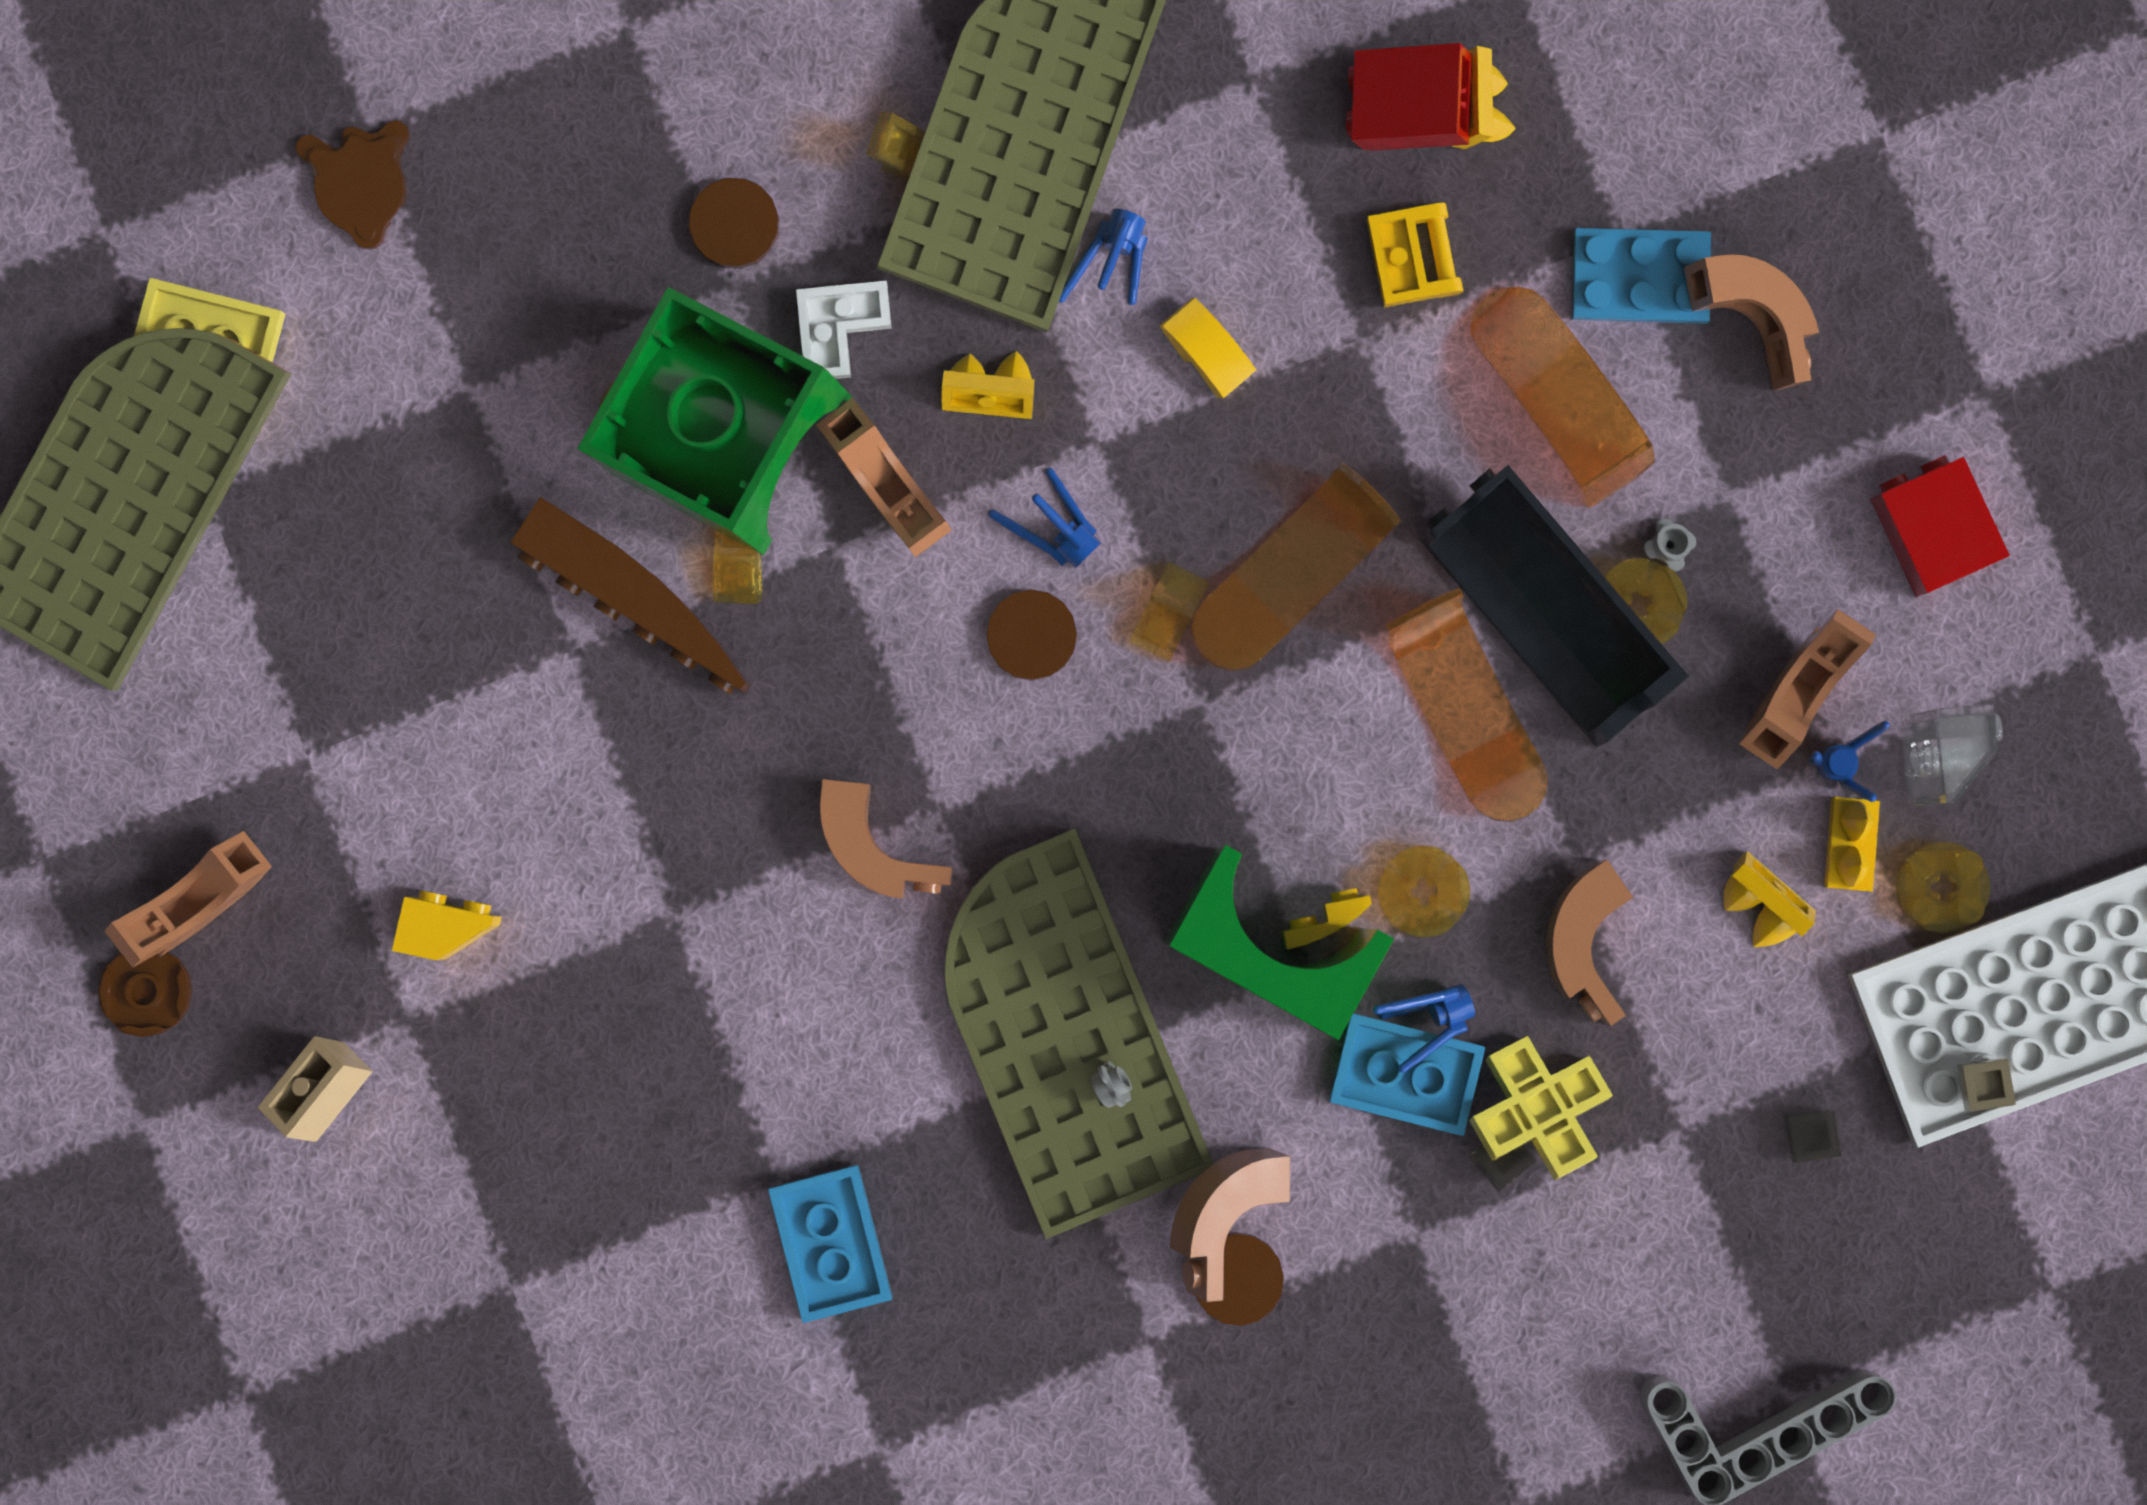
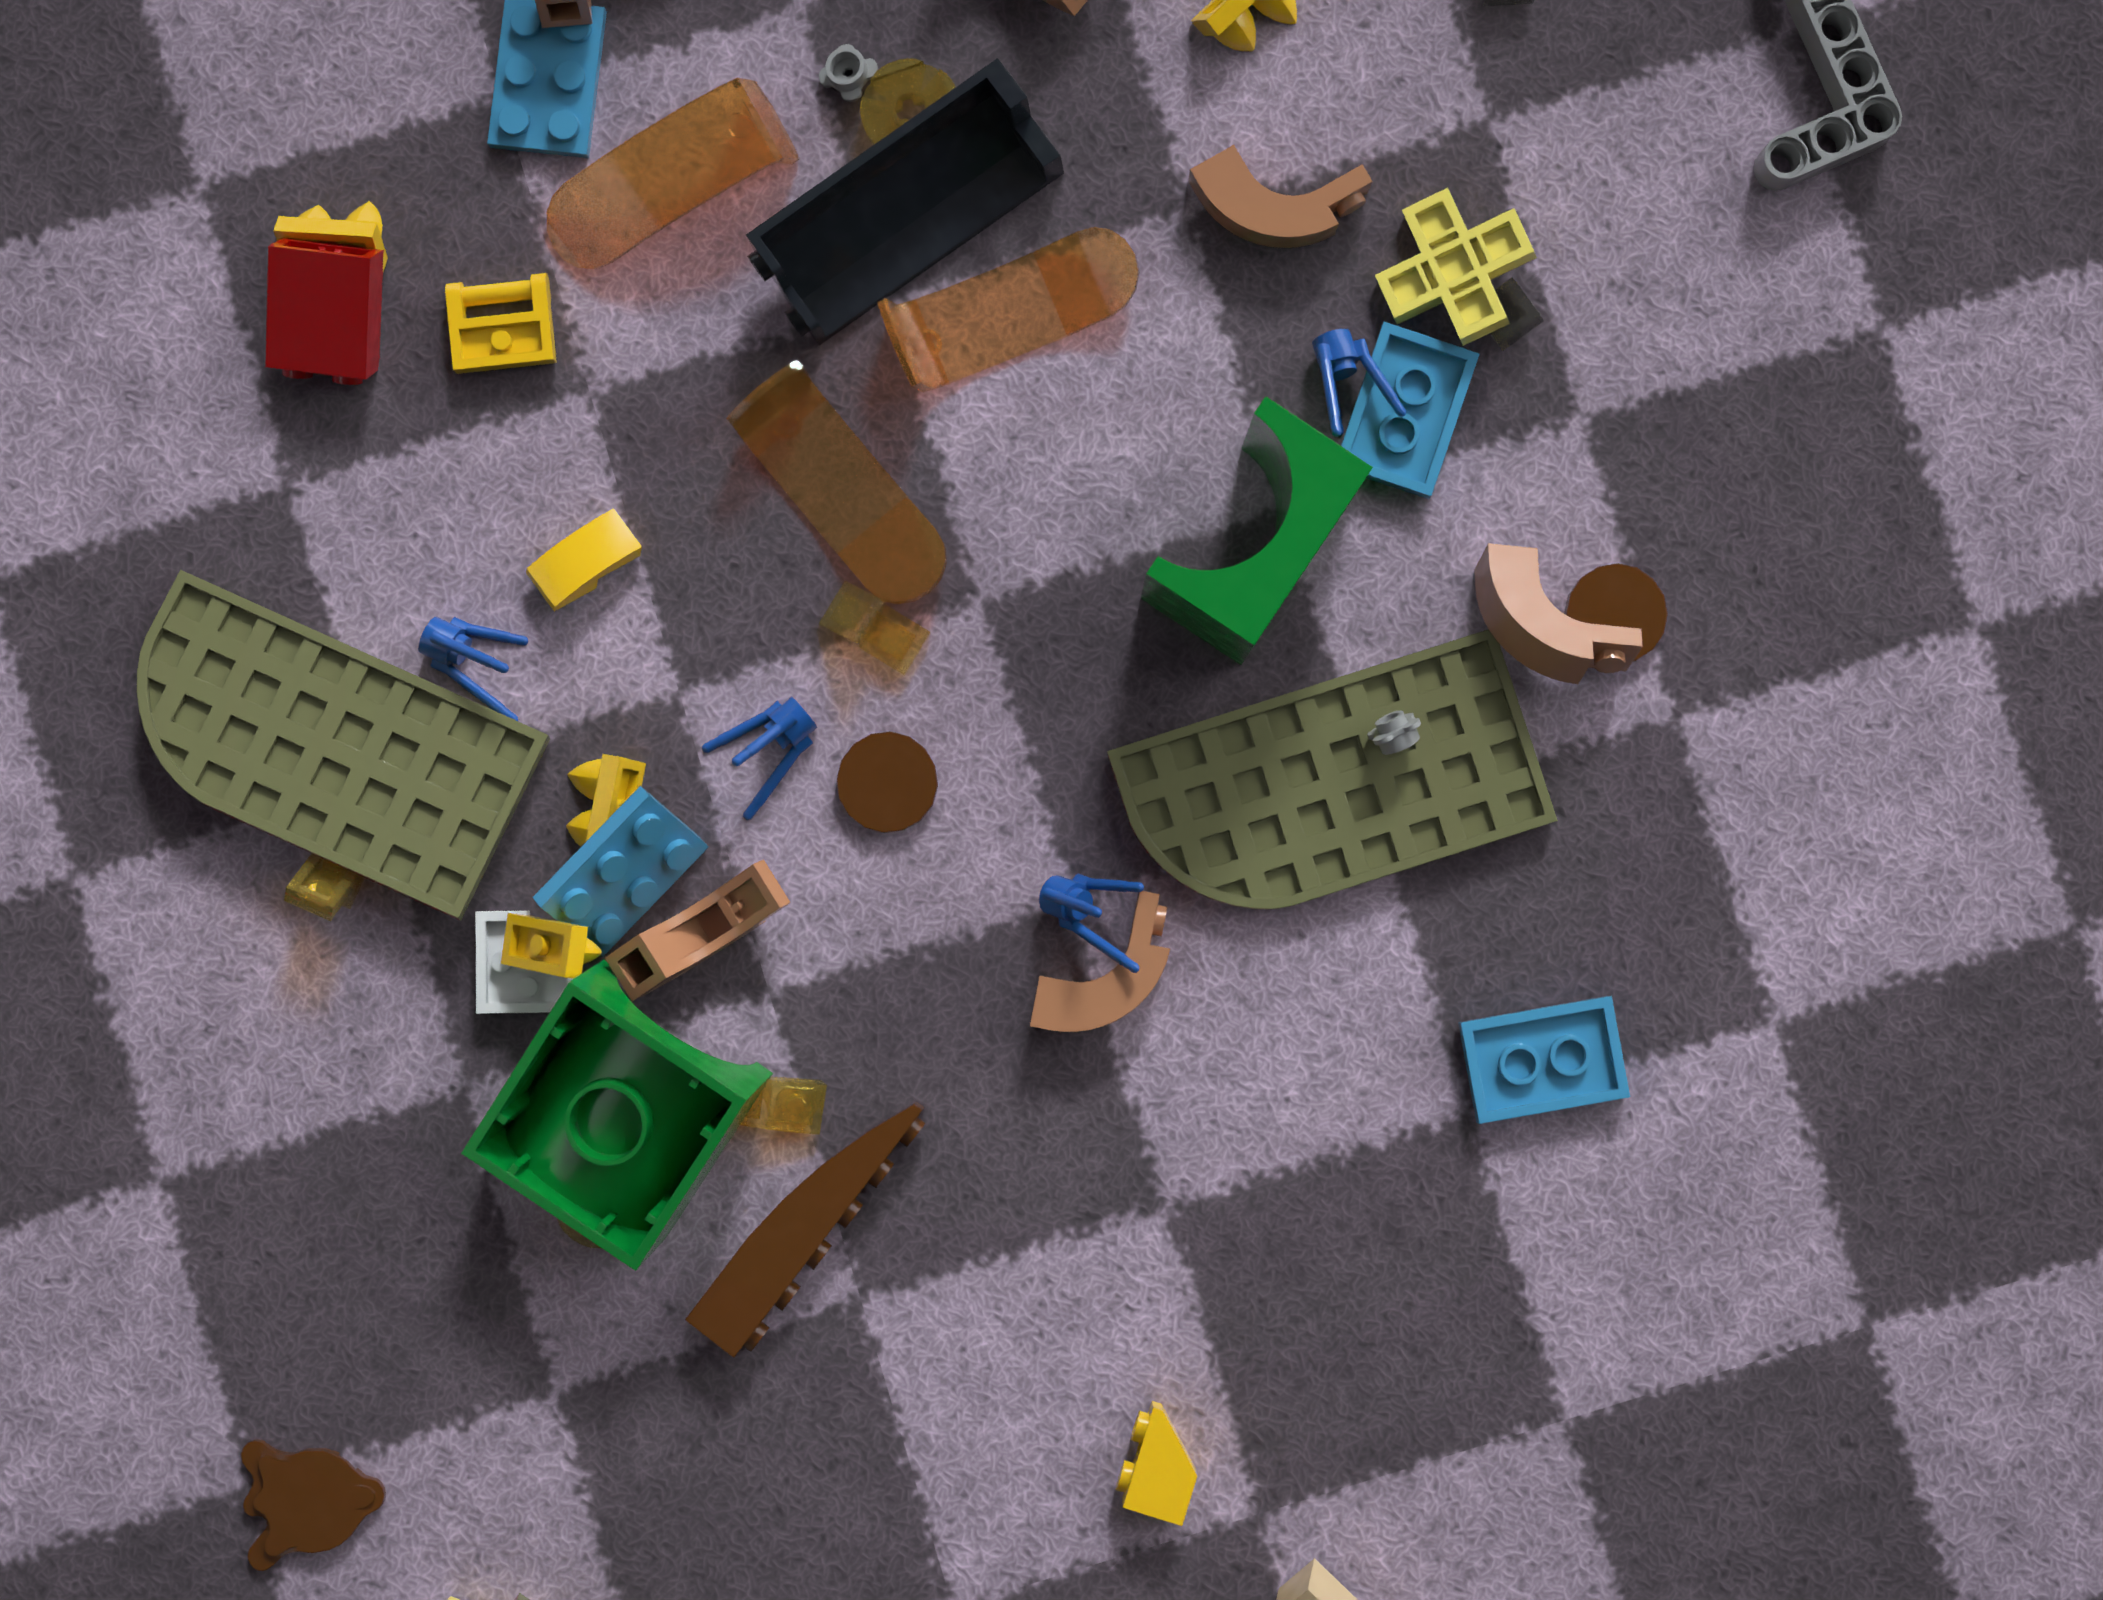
camera: 80 degrees left, 0 degrees up
(734, 223) = (394, 1078): reddish brown tile -> none
(858, 346) = (547, 946): none -> yellow tile
(931, 405) = (621, 870): none -> dark azure plate
(936, 809) = (1073, 902): none -> blue plant
(1343, 909) = (1226, 470): yellow slope -> none
(1442, 909) = (1228, 354): clear yellow plate -> none

